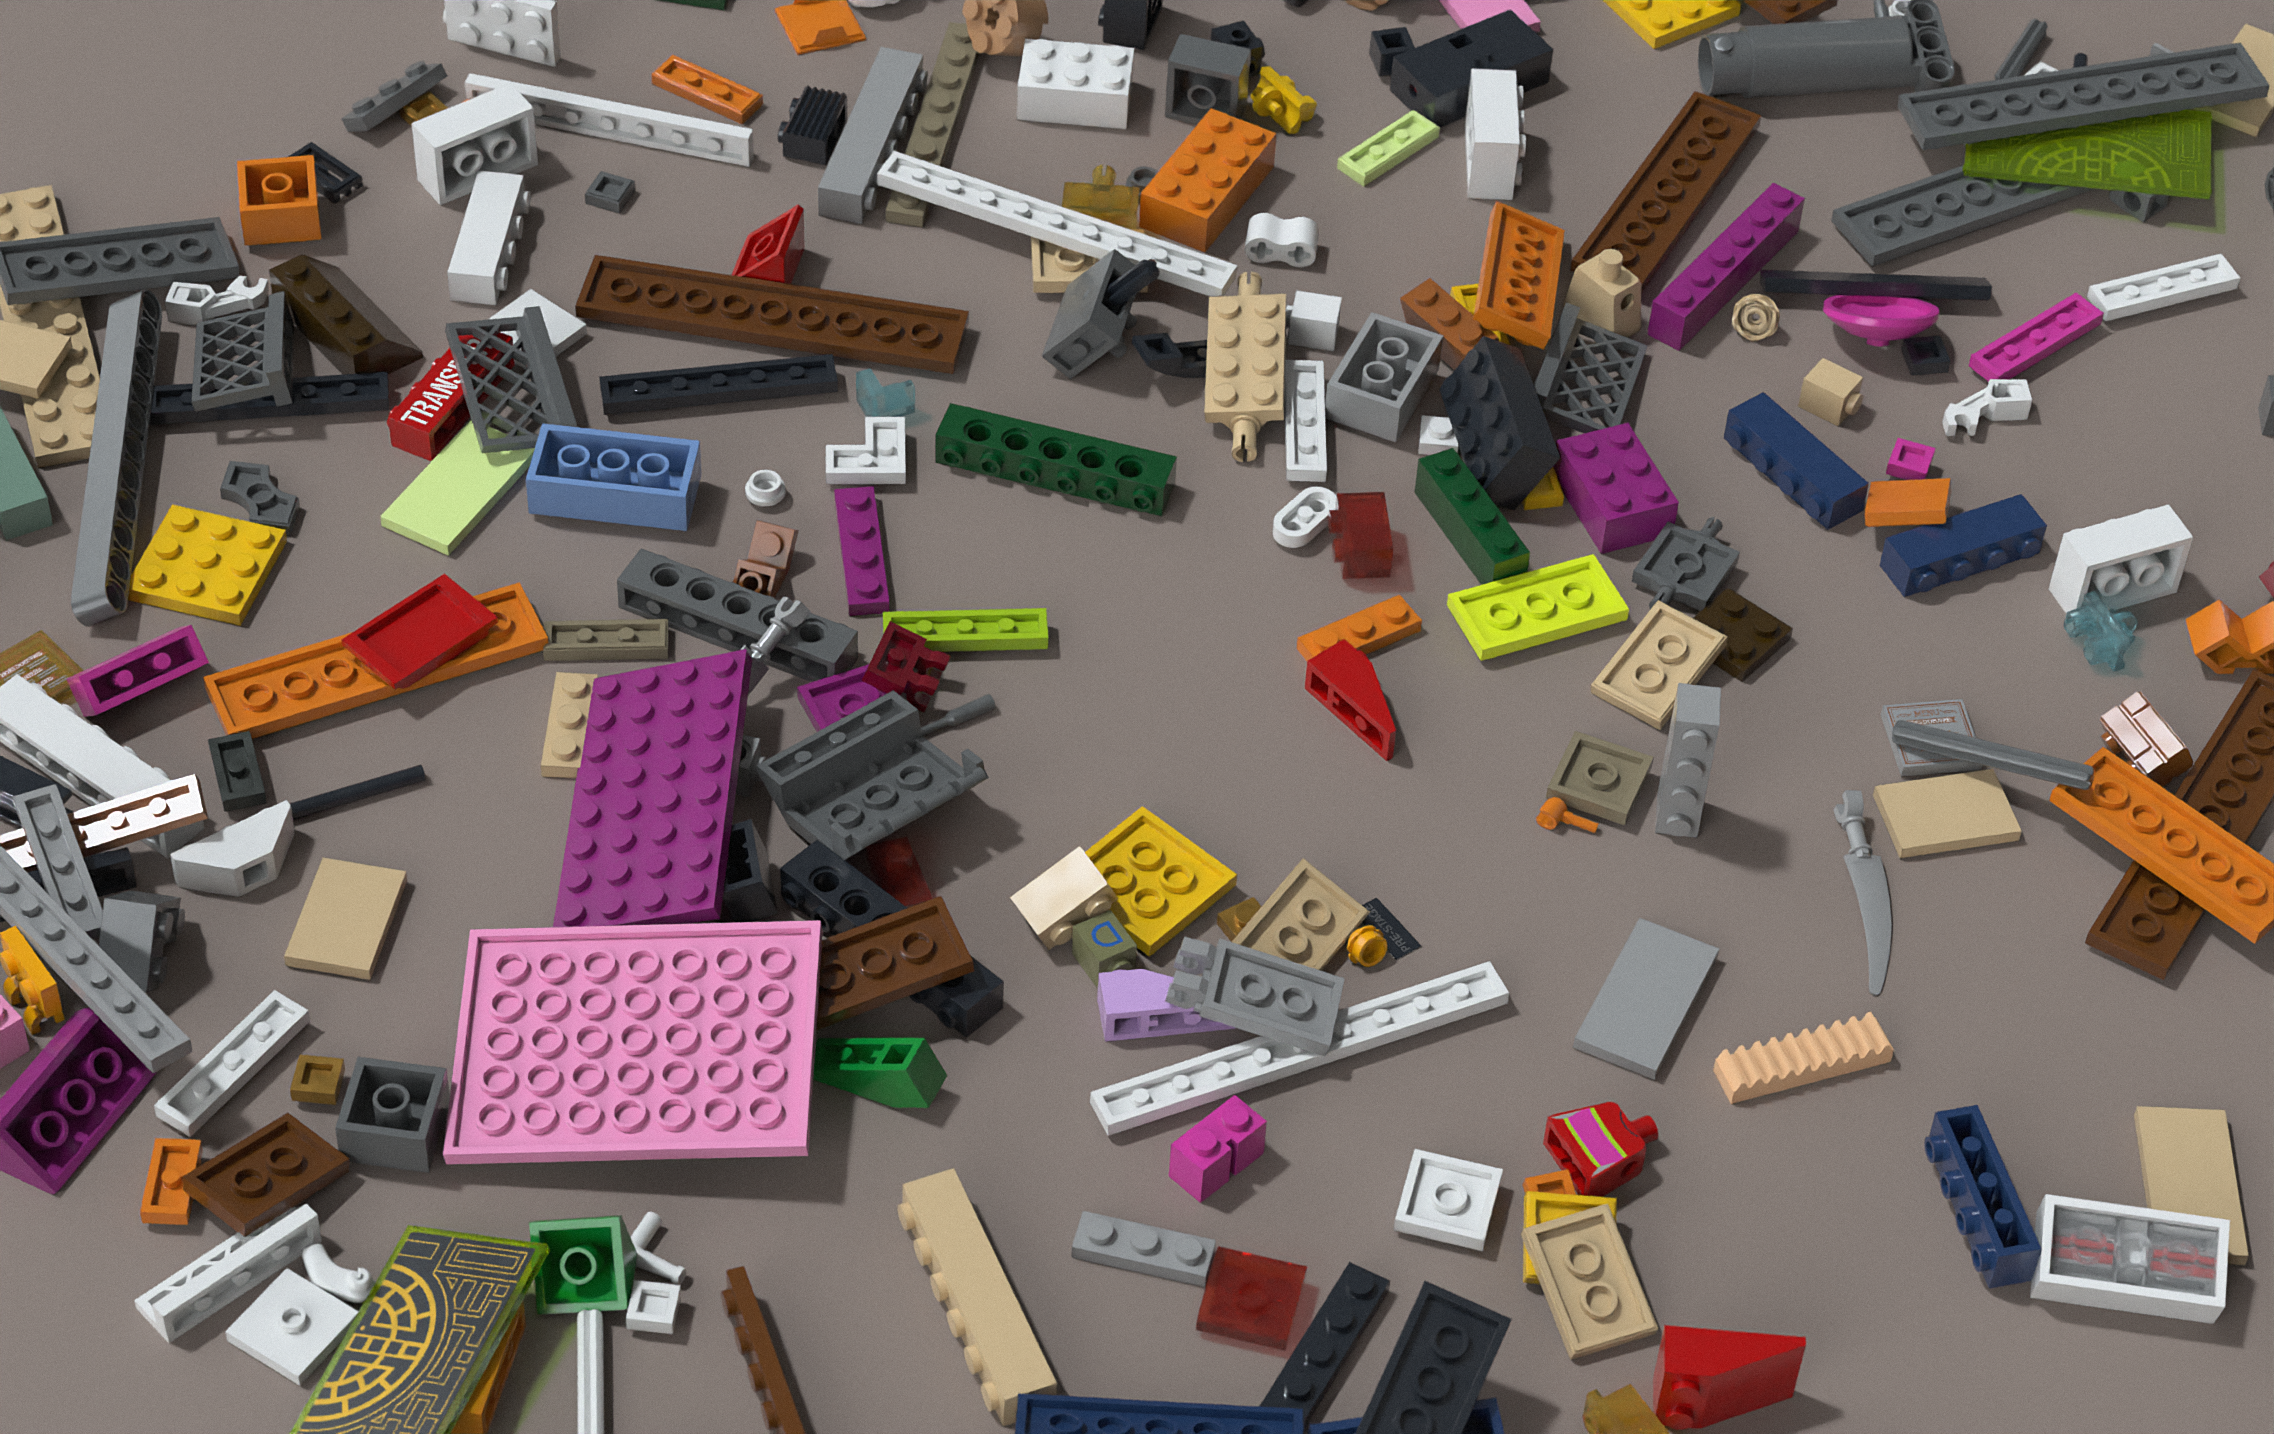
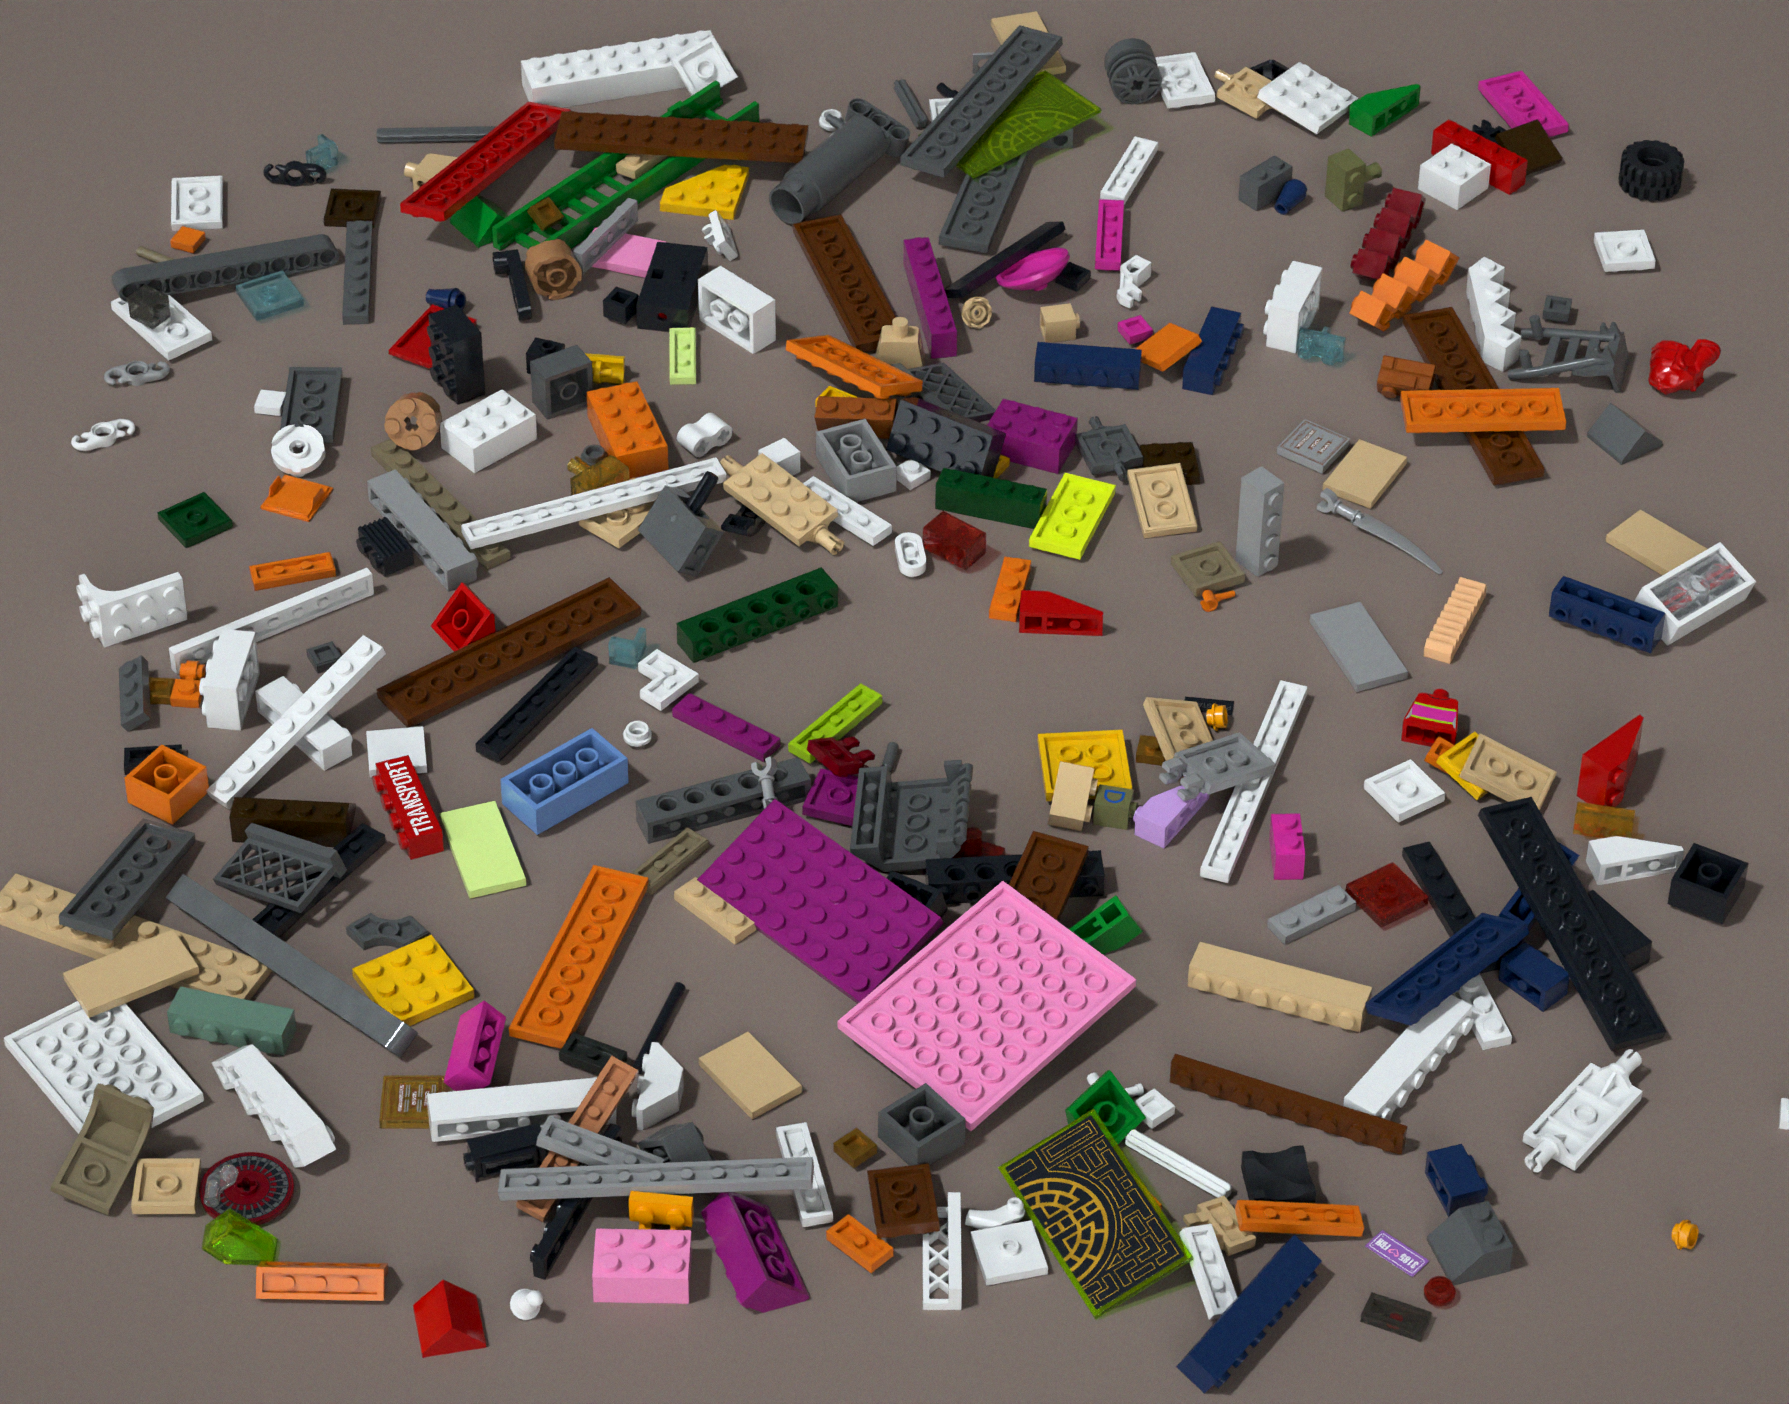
camera: 45 degrees left, 5 degrees down
(198, 302) = (202, 866): white piece -> none
(421, 633) = (588, 921): red piece -> none
(463, 224) = (296, 722): none -> white plate
(541, 368) = (448, 762): dark grey fence -> none
(767, 558) = (690, 762): slope -> none
(1604, 53) = (720, 236): none -> white plate
(1993, 755) = (1361, 428): dark grey axle -> none

